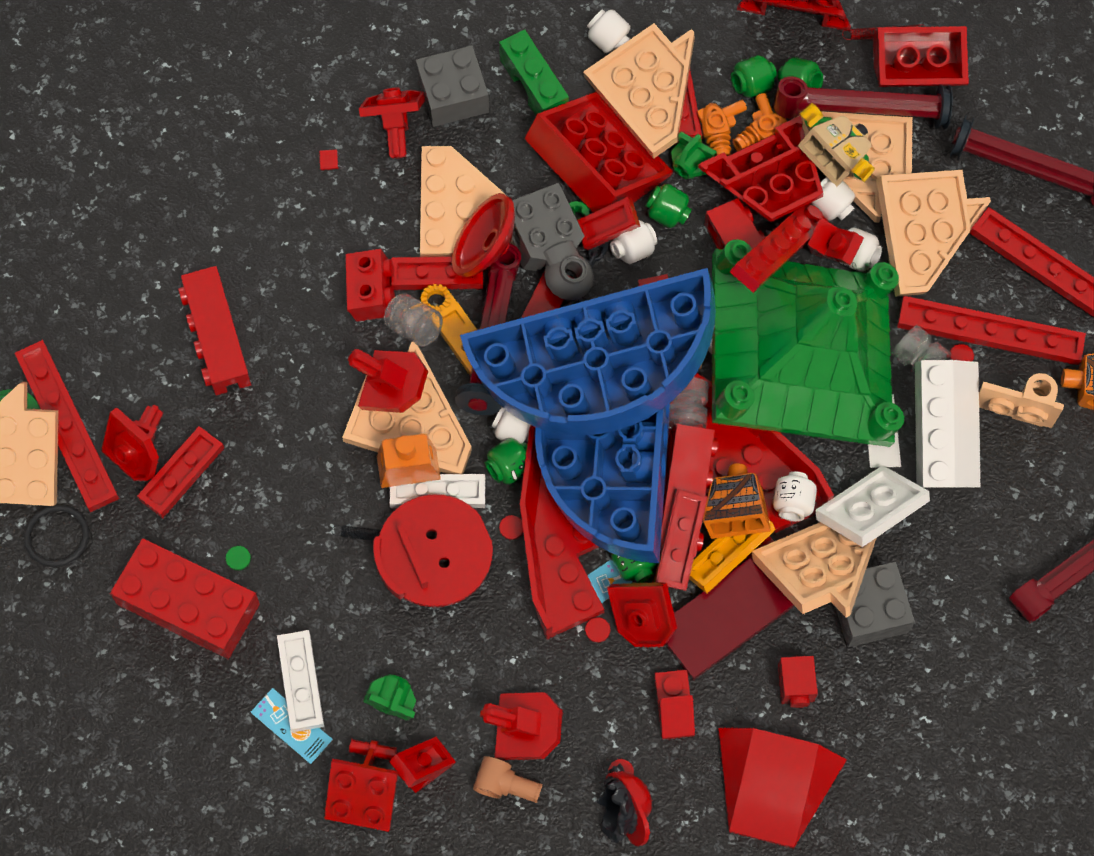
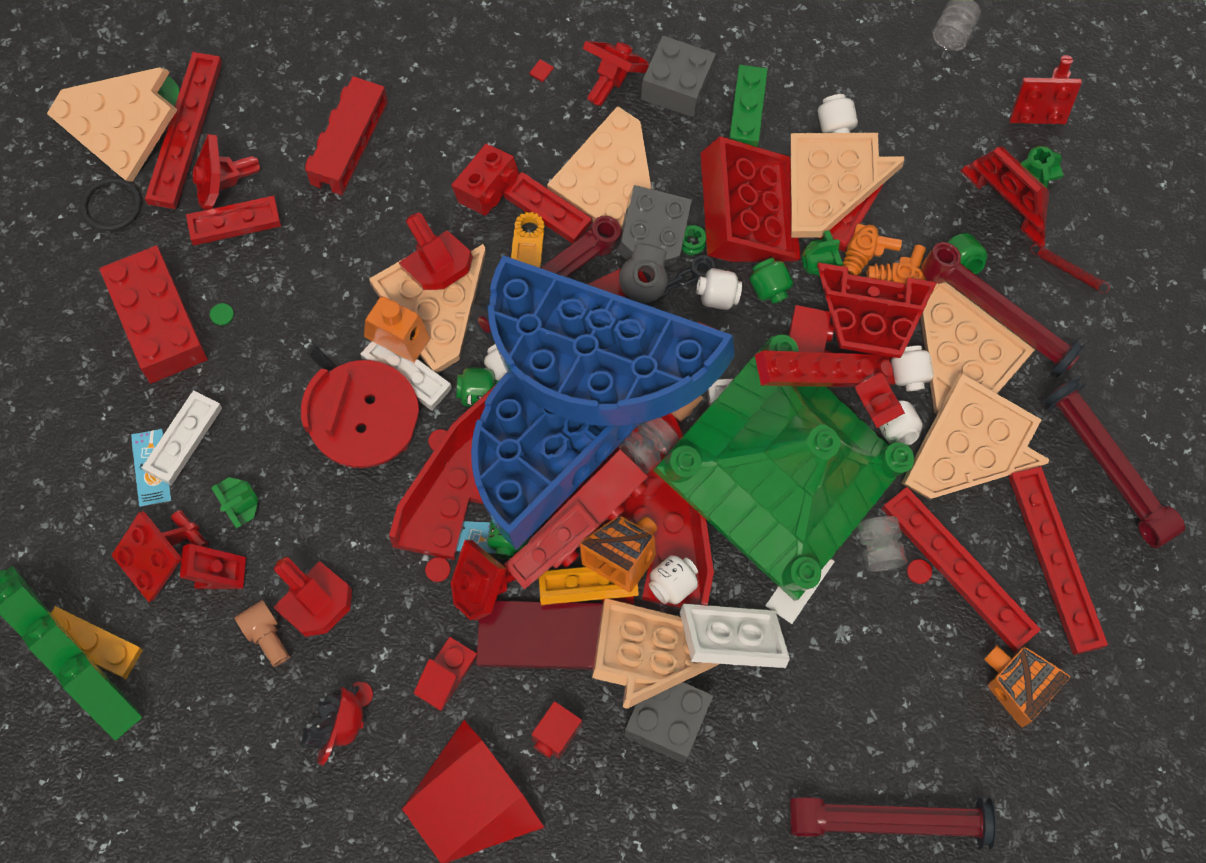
camera: 35 degrees right, 0 degrees up
(413, 319) = (495, 228): clear wheel -> none
(484, 236) = (598, 202): red dish -> none
(608, 223) = (707, 259): red tile -> none
(753, 76) = (926, 228): green head -> none
(836, 146) = (944, 324): tan torso -> none
(921, 56) = (1082, 305): red slope -> none
(947, 424) = (854, 617): white slope -> none
(1032, 405) = (940, 653): light nougat piece -> none

